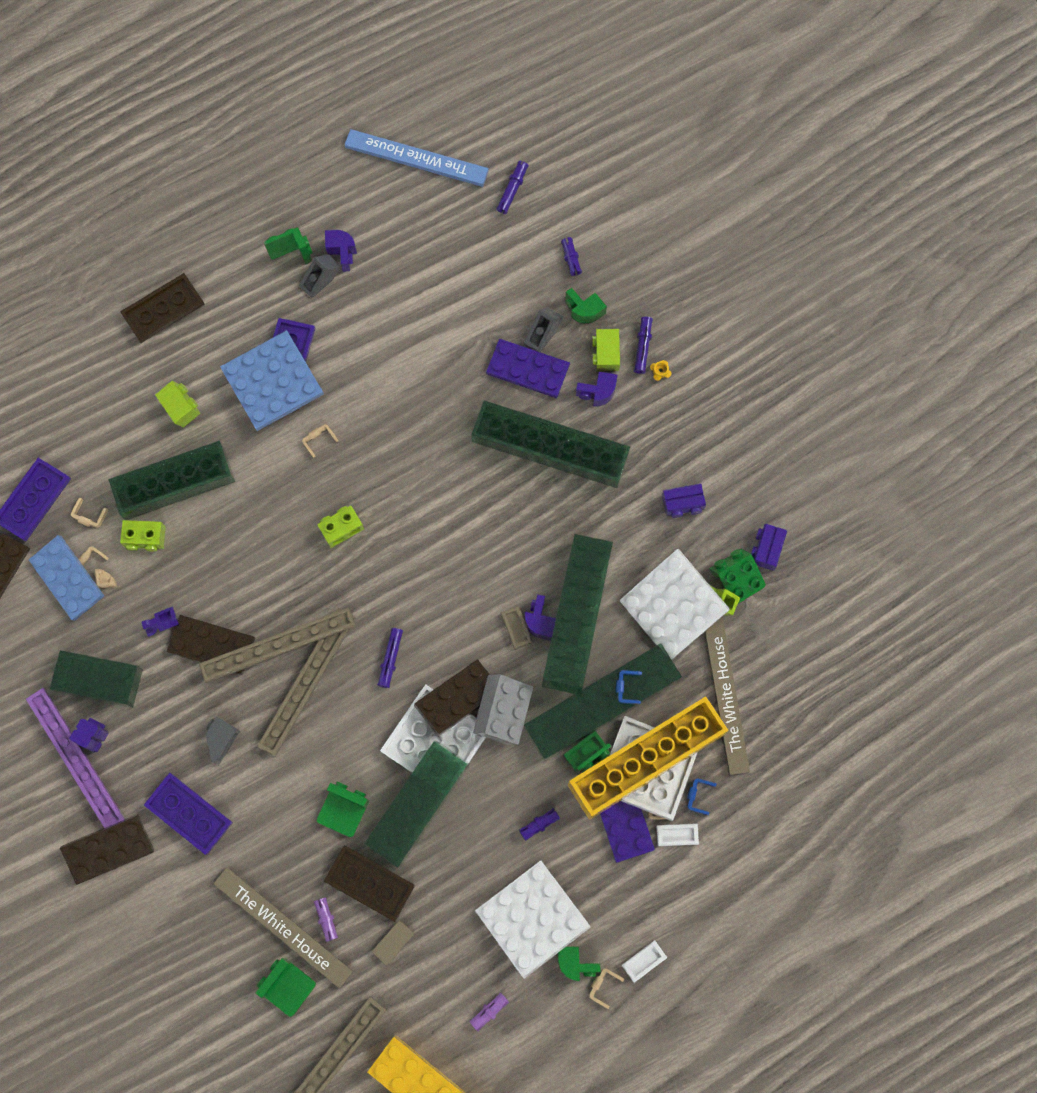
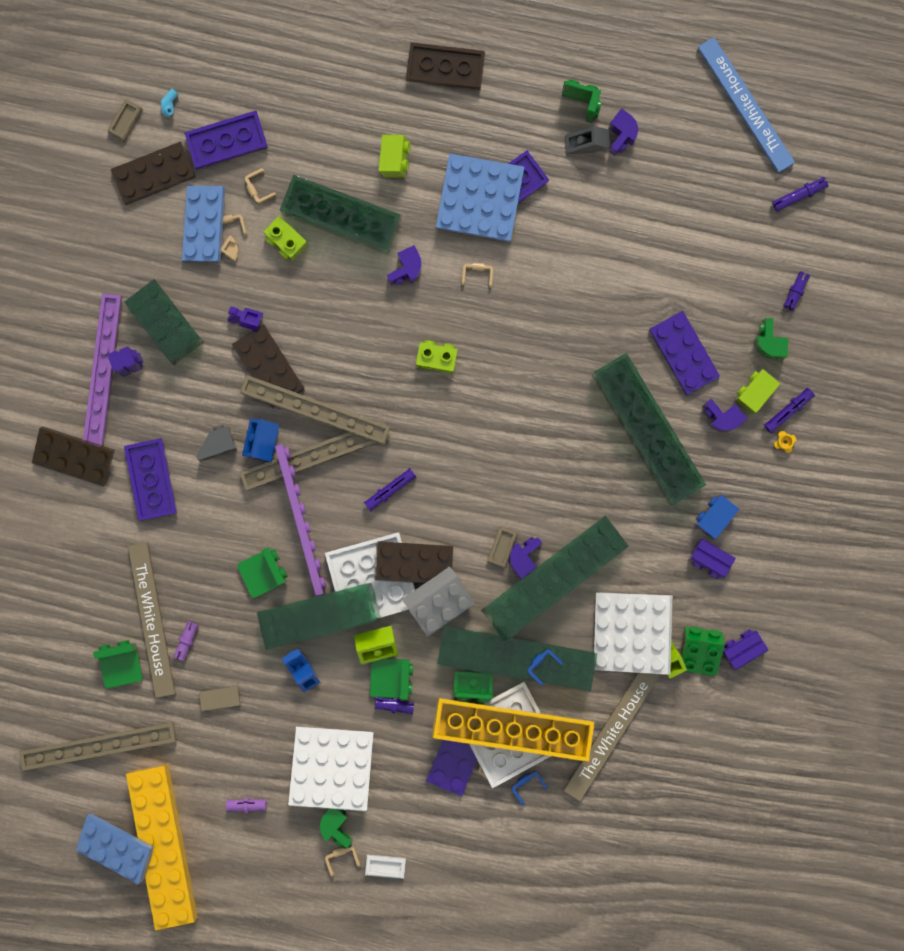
camera: 40 degrees right, 10 degrees up
(252, 705) = (260, 440): none -> blue brick
(261, 474) = (411, 267): none -> dark purple brick
(331, 734) = (302, 526): none -> medium lavender plate
(369, 883) = (237, 642): dark brown plate -> none
(440, 859) = (301, 670): none -> blue brick
(483, 787) = (376, 644): none -> lime brick
(518, 804) = (391, 678): none -> green bracket
(543, 328) = (723, 332): dark grey slope -> none
(659, 465) = (716, 516): none -> blue brick
(677, 835) = (487, 799): white tile -> none

